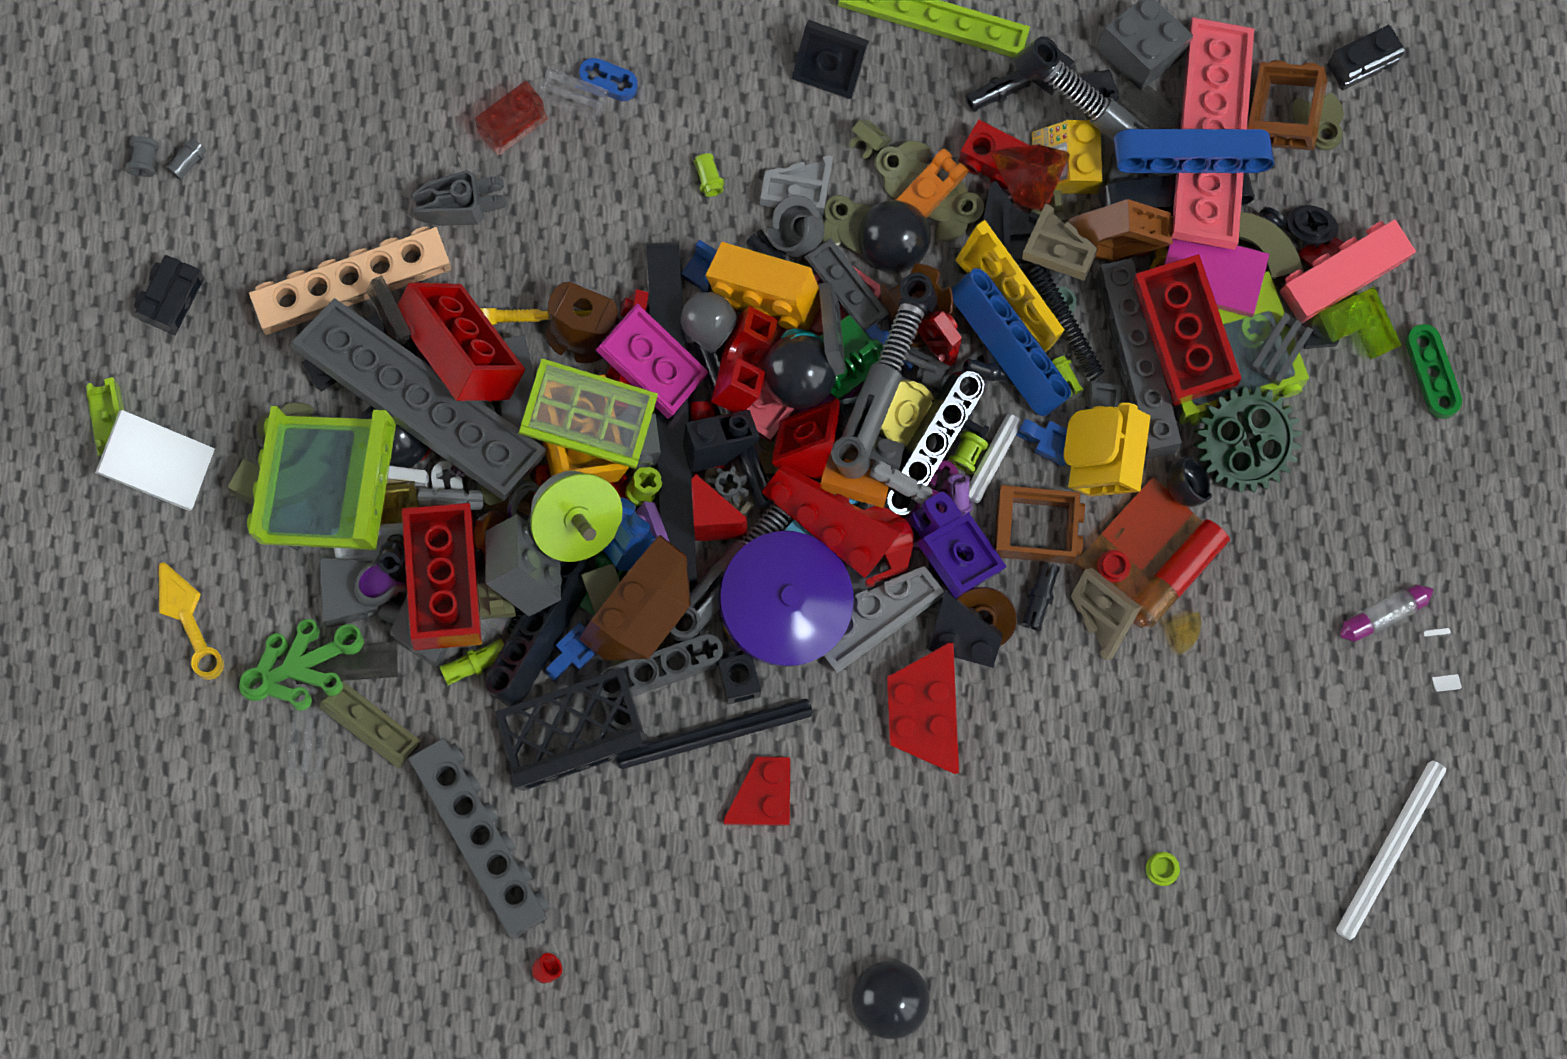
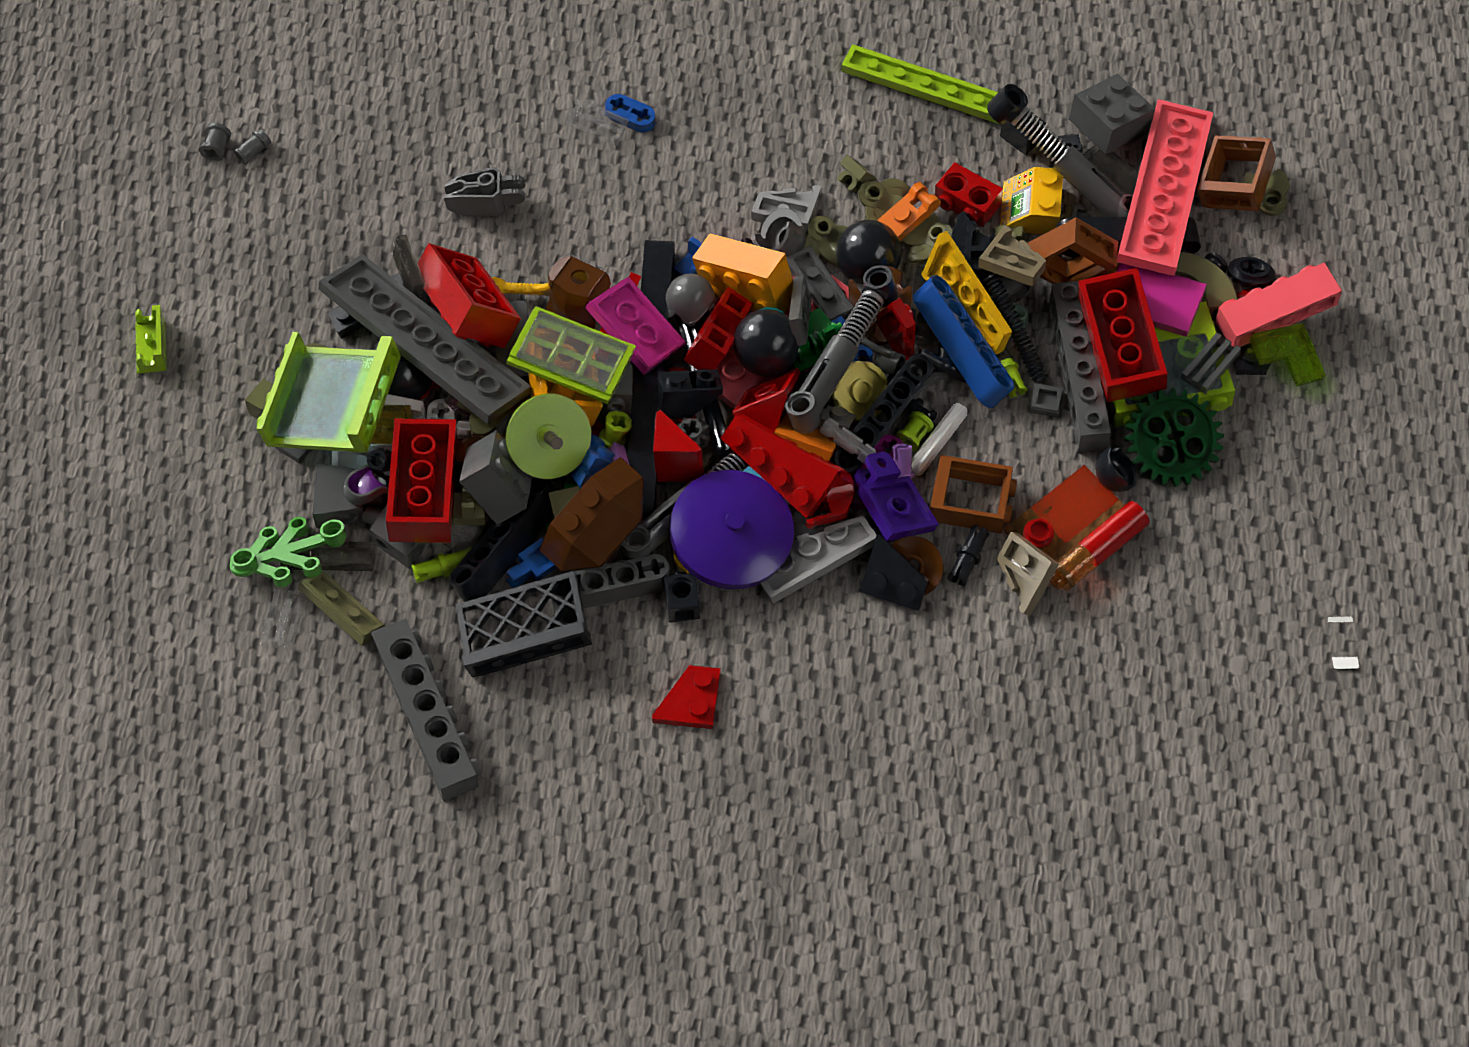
camera: 15 degrees right, 15 degrees down
(155, 460) = (185, 375): white tile -> none
(168, 294) = (220, 249): black brick -> none
(179, 601) = (188, 494): yellow piece -> none
(330, 272) = (335, 249): light nougat brick -> none
(511, 118) = (540, 134): clear red window -> none
(546, 968) = (471, 825): red hinge -> none
(710, 181) = (710, 199): lime pin -> none
(719, 732) = (655, 643): black axle -> none
(830, 59) = (827, 106): black tile -> none
(890, 999) = (788, 883): black piece -> none
(925, 709) = (850, 637): red wing -> none
(996, 90) = (976, 144): black pin -> none
(1031, 172) = (995, 205): clear red slope -> none
(1049, 439) = (992, 429): blue plate -> none
(1107, 449) = (1041, 432): yellow brick -> none
(1162, 869) = (1058, 796): lime plate -> none
(1185, 631) = (1100, 597): clear yellow tile -> none
(1193, 151) = (1143, 192): blue beam -> none
(1366, 57) = (1313, 141): black brick -> none
(1386, 612) = (1292, 596): piece -> none
(1391, 850) = (1278, 800): white axle -> none
(1434, 357) = (1358, 390): green plate -> none

